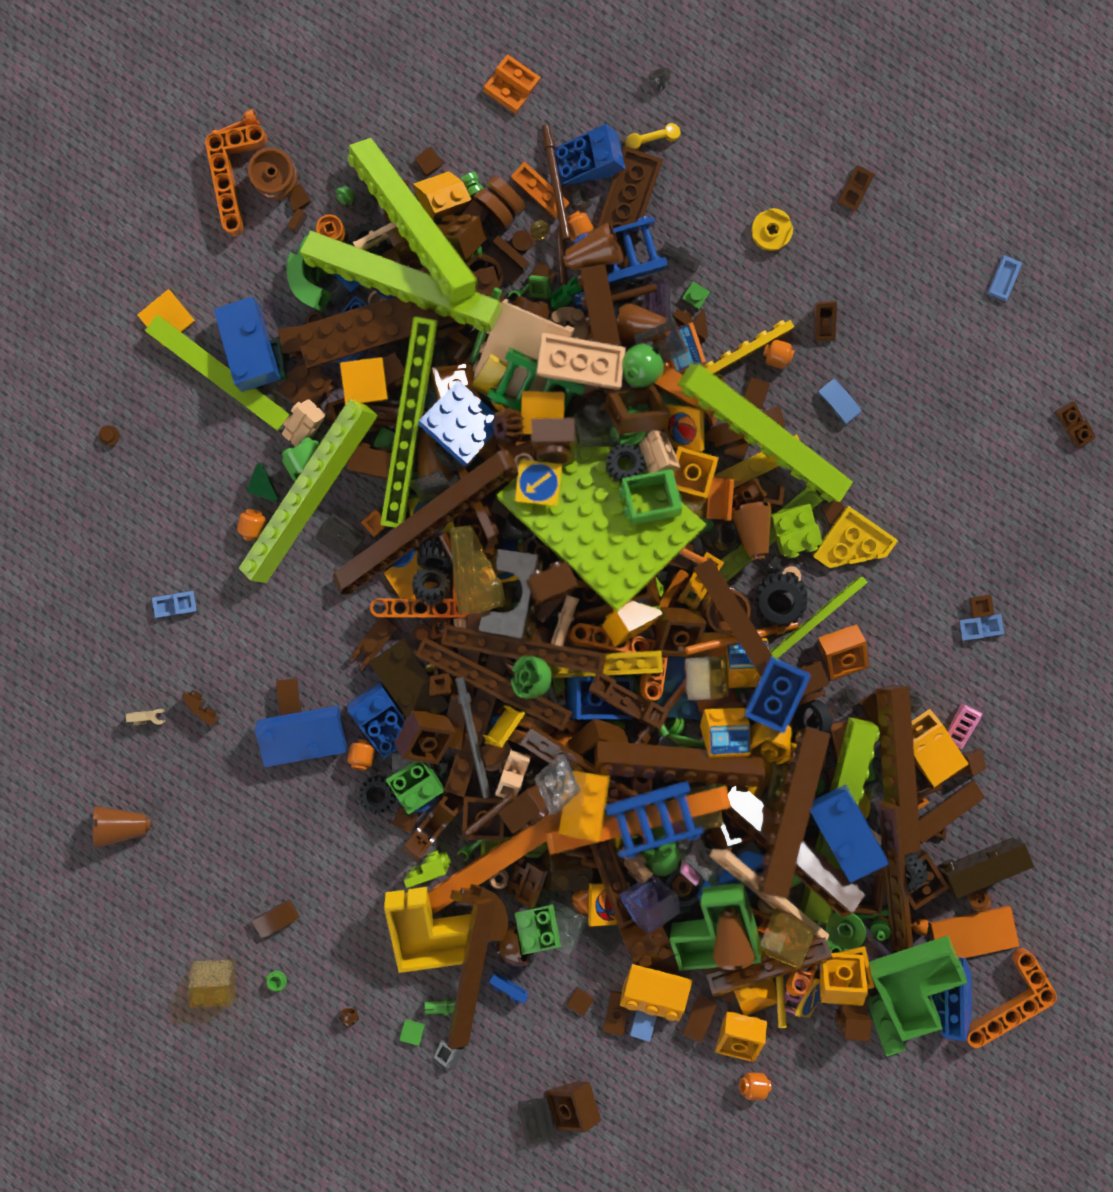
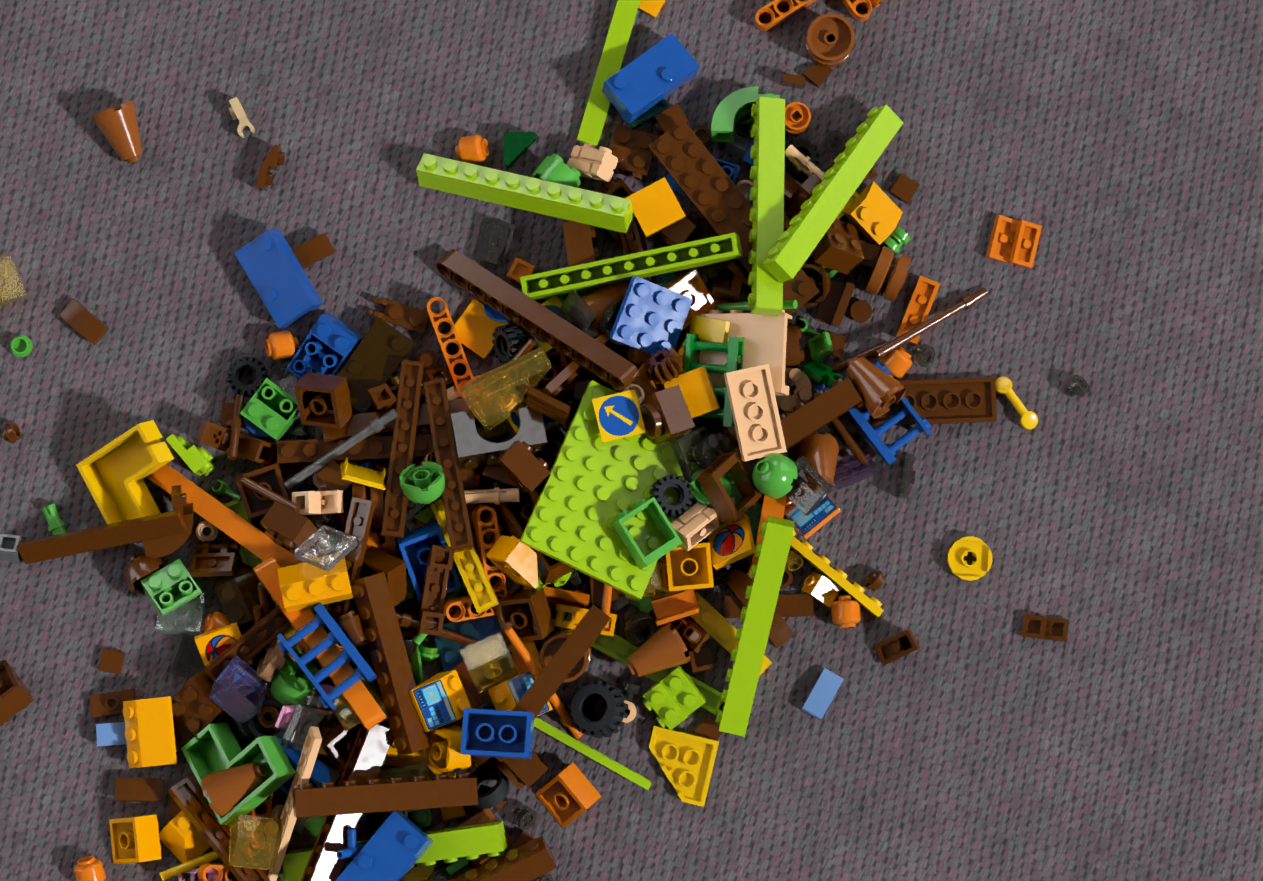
camera: 65 degrees right, 5 degrees down
(174, 604) = (363, 103): medium blue slope -> none
(345, 195) = (837, 118): bright green plate -> none
(385, 439) = (608, 249): bright green plate -> none
(412, 1032) = (18, 502): bright green tile -> none
(418, 821) = (236, 426): none -> reddish brown bar
(431, 575) = (468, 353): black tyre -> none
(505, 542) = (548, 405): none -> reddish brown tile
(514, 991) = (97, 591): blue plate -> none
(539, 230) = (877, 324): clear yellow plate -> none
(590, 156) = (970, 347): blue slope -> none
(633, 787) = (352, 627): none -> reddish brown cone
(684, 317) = (842, 519): reddish brown slope -> none
(695, 295) = (873, 506): bright green plate -> none
(749, 368) = (821, 588): none -> light orange bracket
(760, 318) = (874, 580): none -> reddish brown plate
(826, 856) = (352, 849): none -> blue piece
(1004, 278) = (1013, 815): medium blue tile -> none

